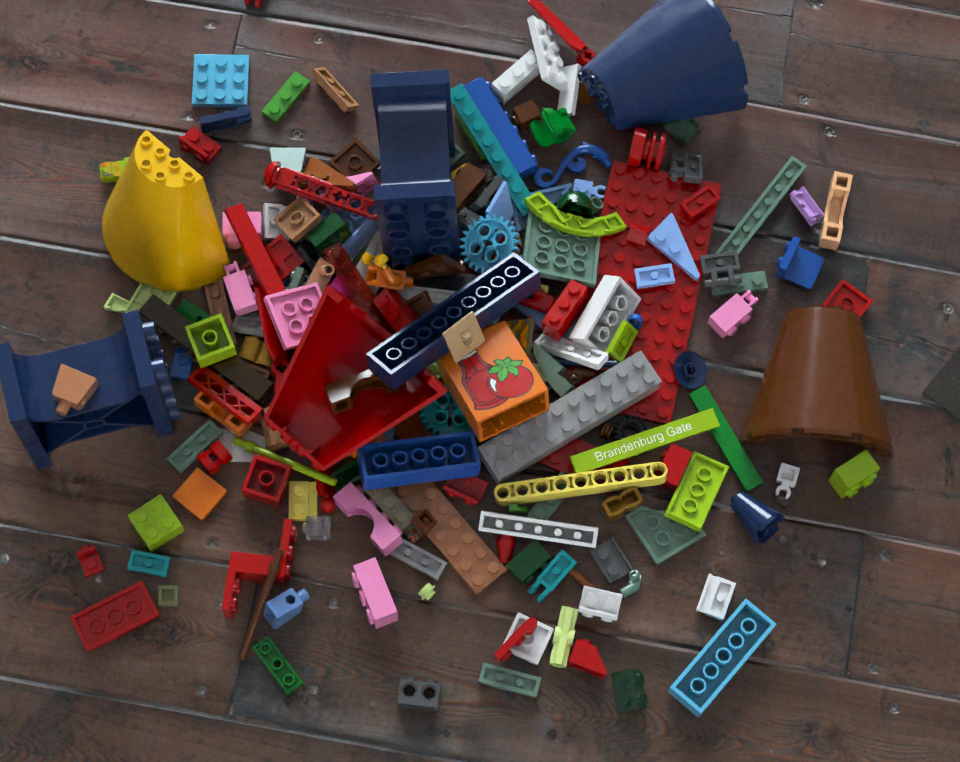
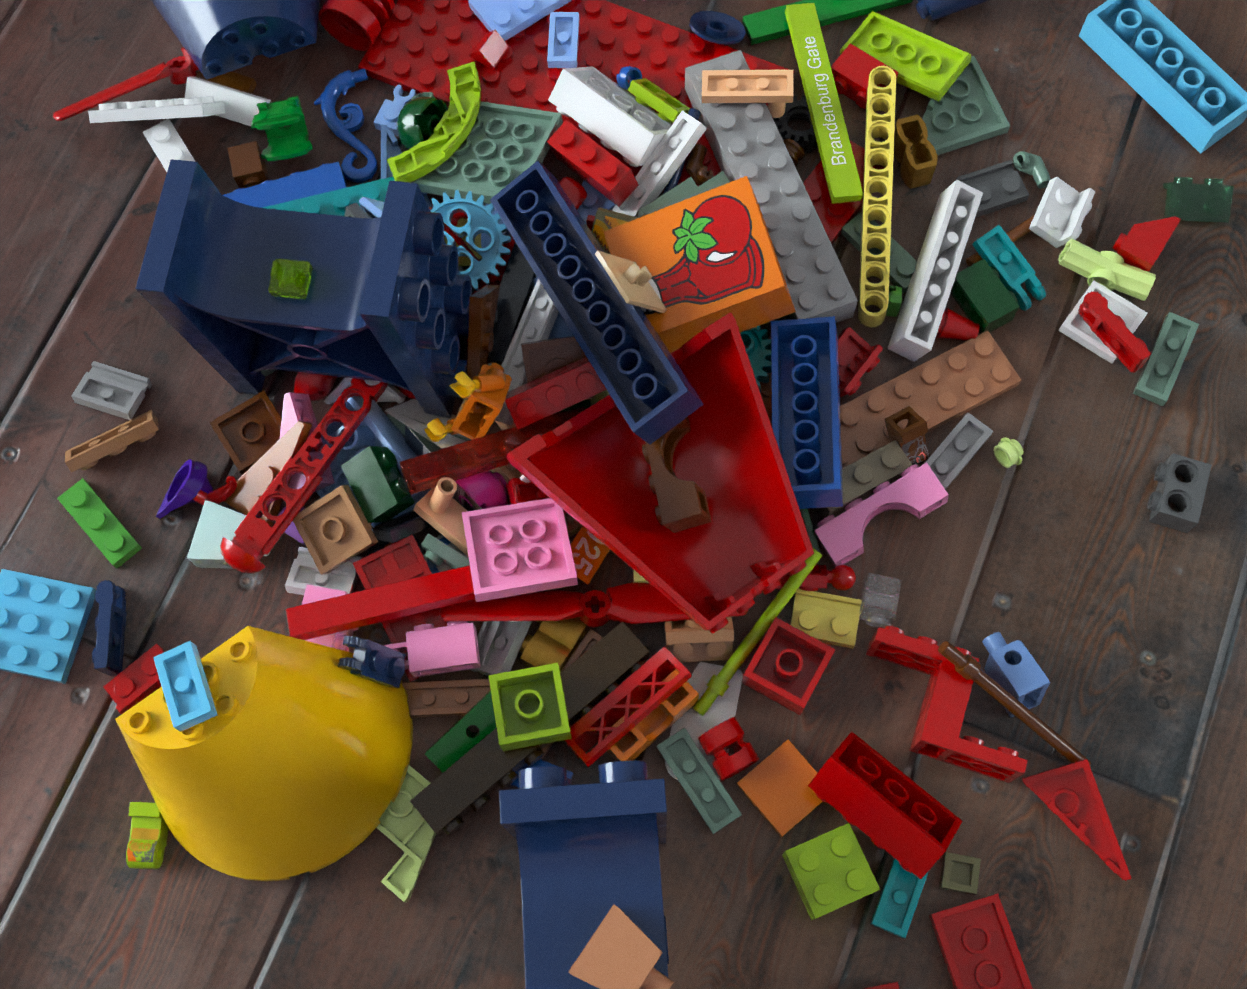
camera: 70 degrees left, 0 degrees up
(164, 155) = (185, 686): none -> medium azure plate
(196, 543) = (886, 805): none -> red brick
(217, 655) = (1076, 800): none -> red wing
(219, 254) = (374, 662): none -> dark blue hinge
(285, 674) = (1087, 715): green tile -> none
(314, 139) = (192, 486): none -> dark purple piece
(361, 79) = (111, 390): none -> light grey plate
(374, 593) = (1011, 525): bright pink brick -> none
(405, 149) = (290, 278): none -> clear neon green tile
(630, 388) = (749, 87): none -> light nougat piece
(715, 597) = (1067, 63): white plate -> none

